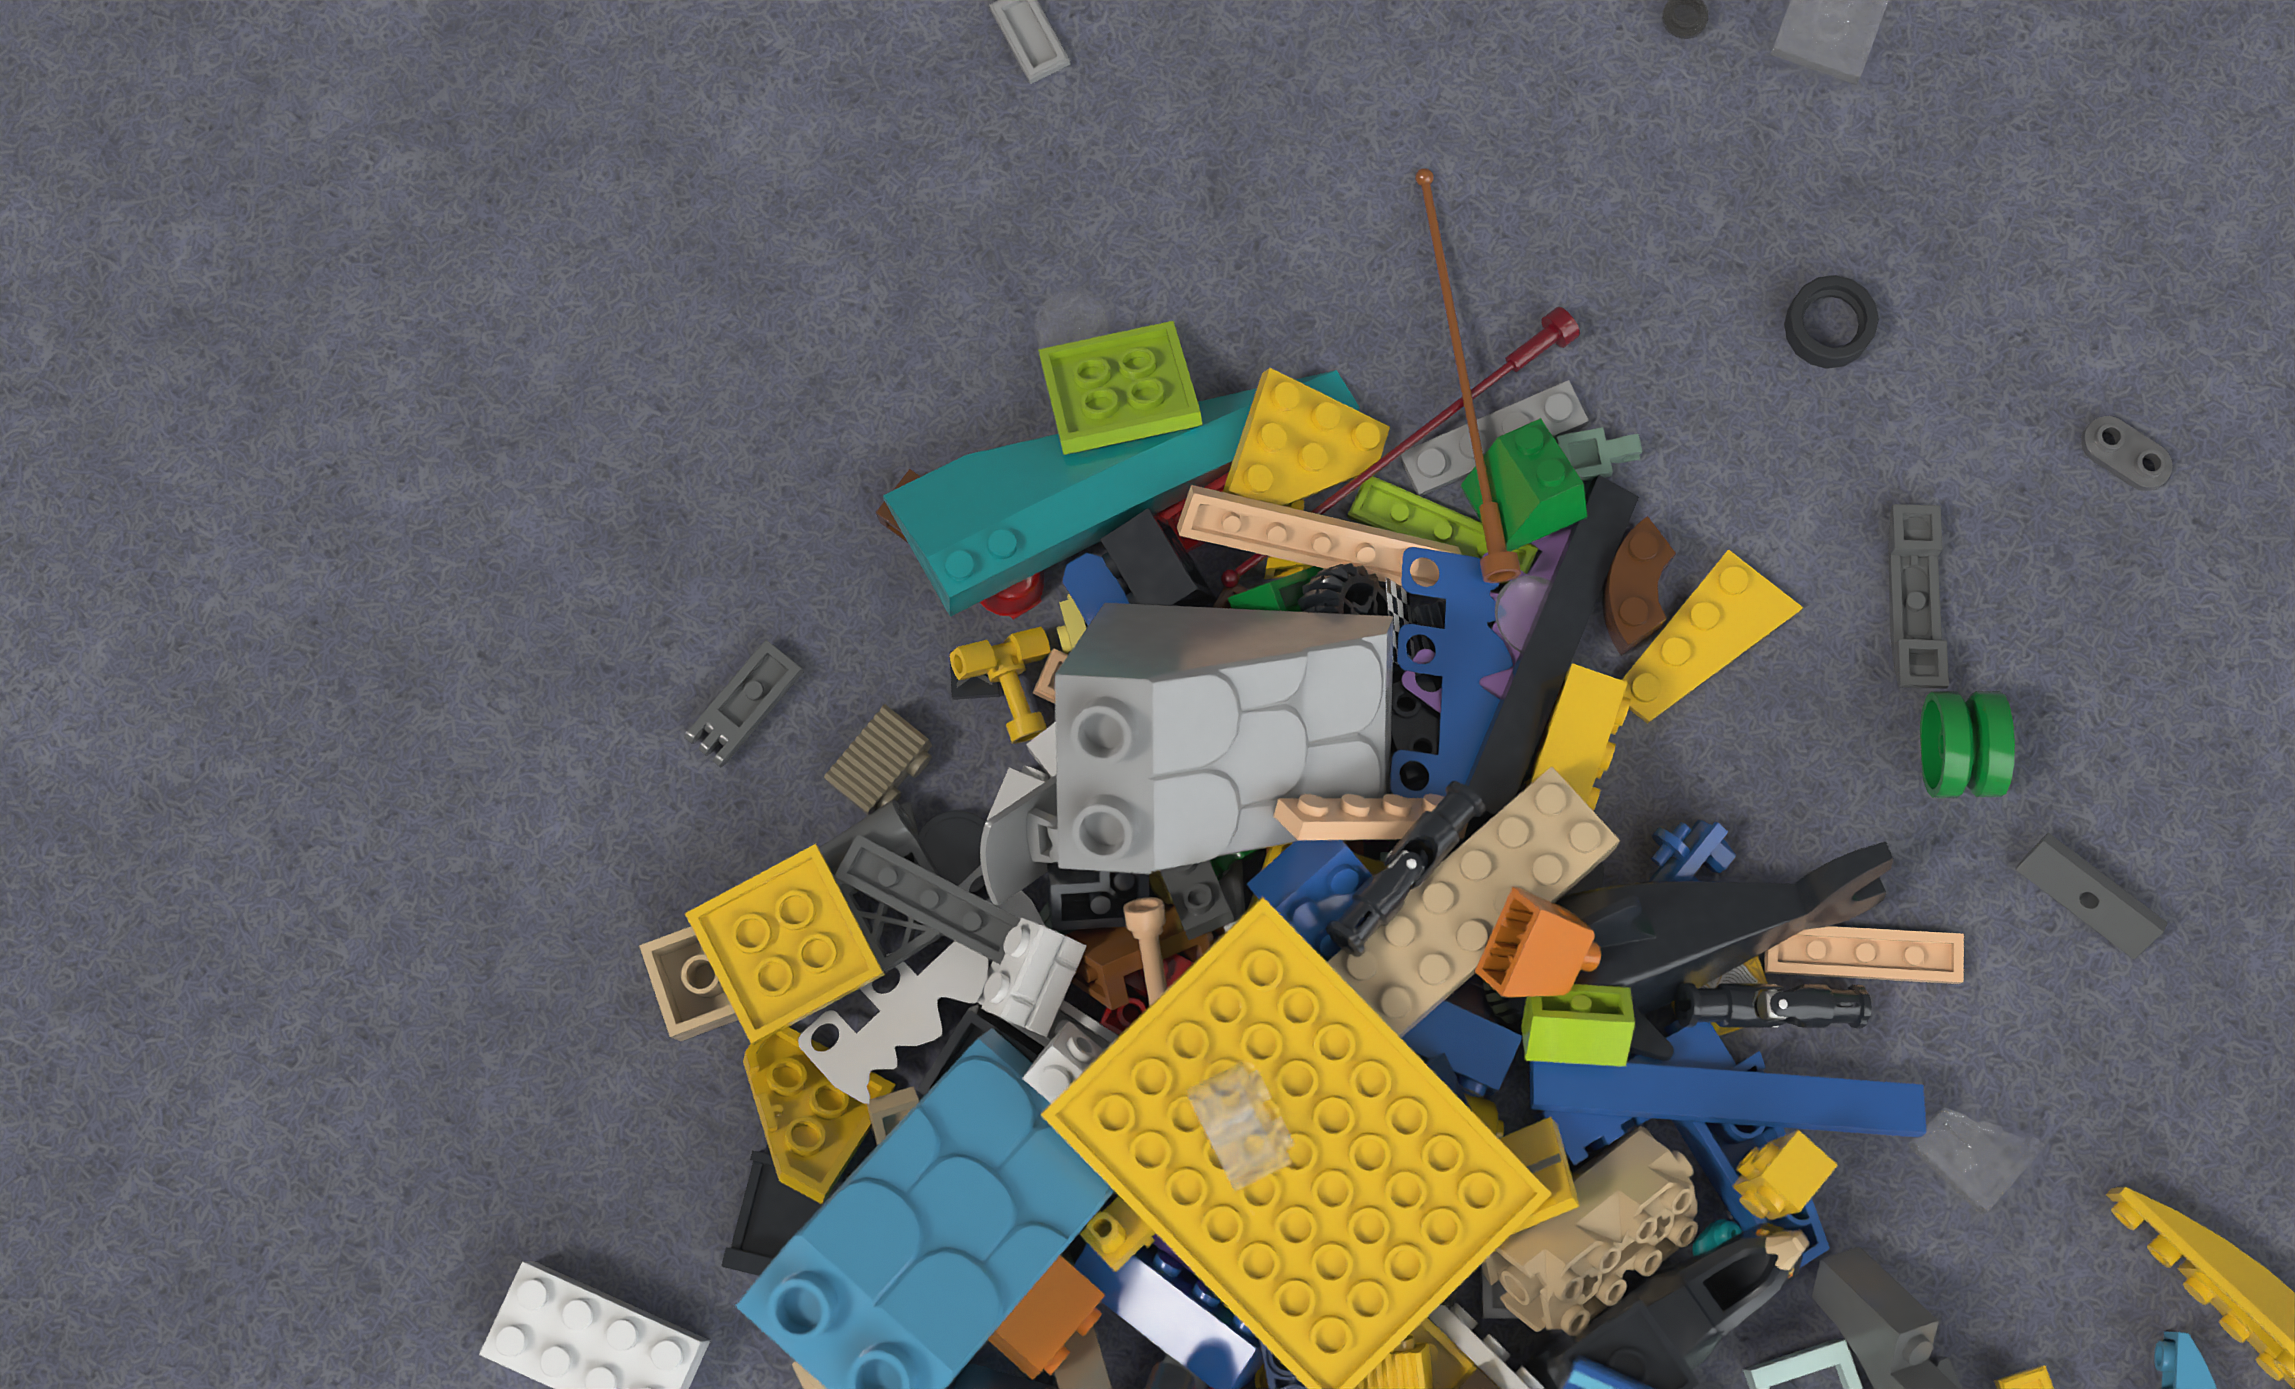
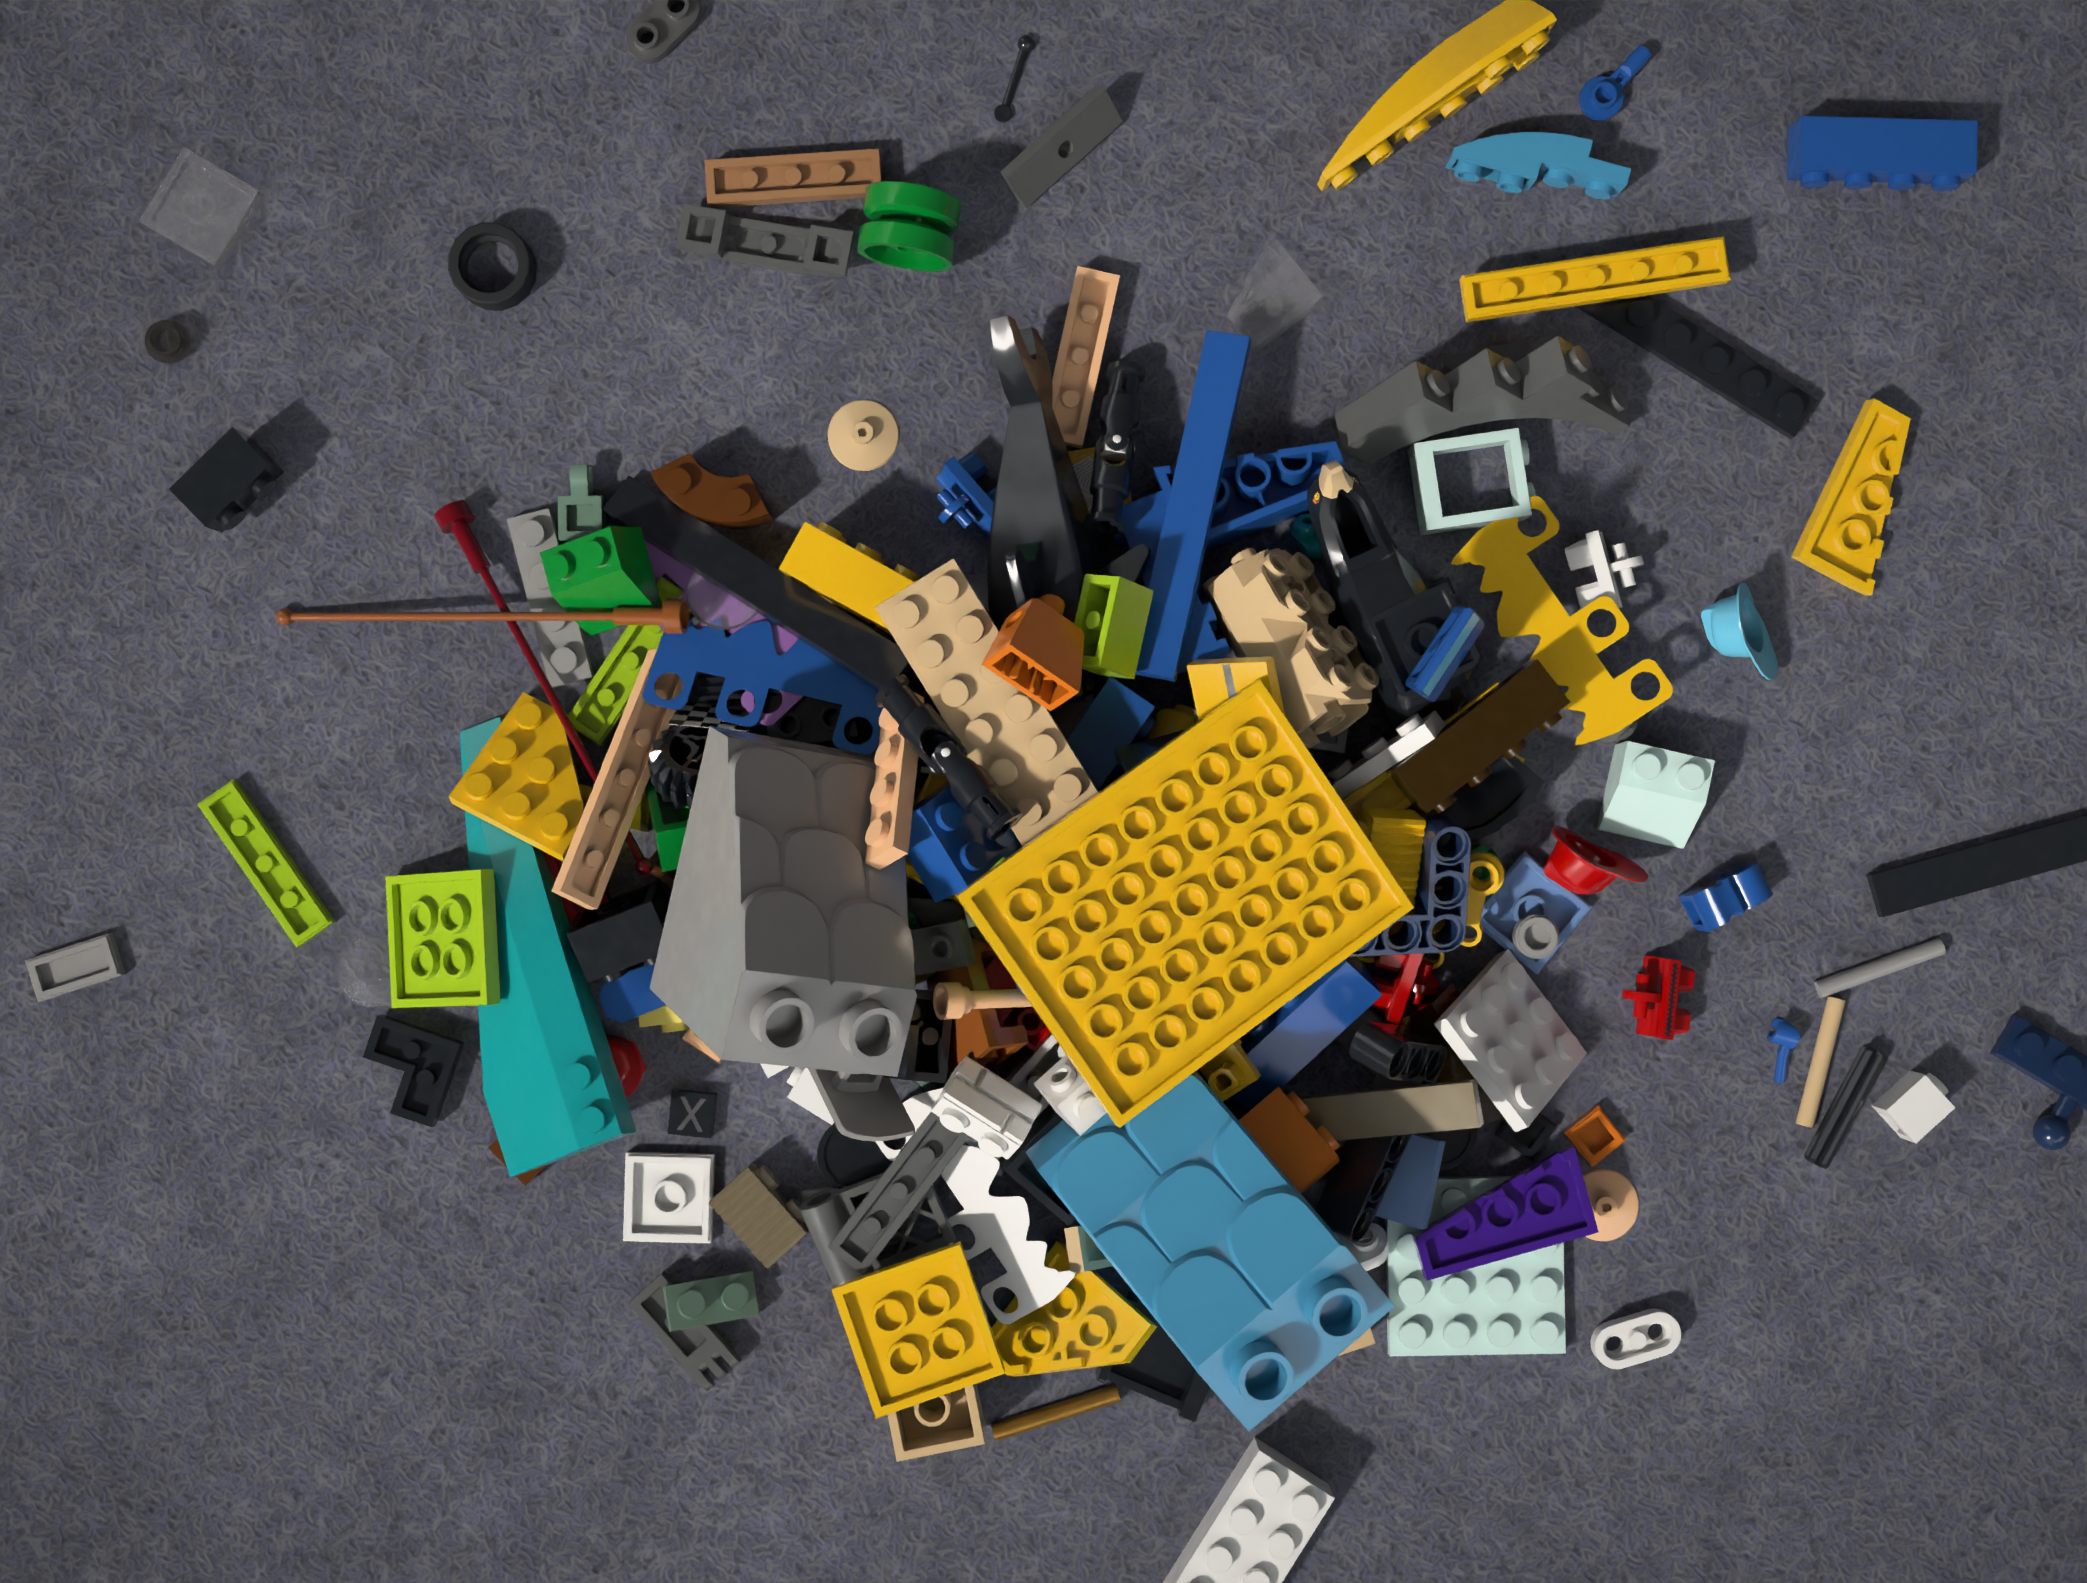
camera: 85 degrees left, 10 degrees up
(708, 1115) = (1056, 1412): none -> pearl gold bar
(780, 724) = (710, 1301): none -> sand green plate
(882, 664) = (668, 1197): none -> white tile
(987, 394) = (427, 1065): none -> black plate
(1003, 665) = (688, 1085): yellow bar -> none
(1166, 201) = (266, 863): none -> lime tile
(1240, 1126) = (1161, 950): clear brick -> none
(1554, 97) = (227, 481): none -> black brick
(1709, 631) = (763, 433): yellow wing -> none
(1731, 735) = (863, 435): none -> tan piece
(1782, 1176) = (1271, 471): yellow brick -> none
(1992, 613) = (791, 178): none -> medium nougat plate
(2114, 827) = (1003, 112): none -> black hinge

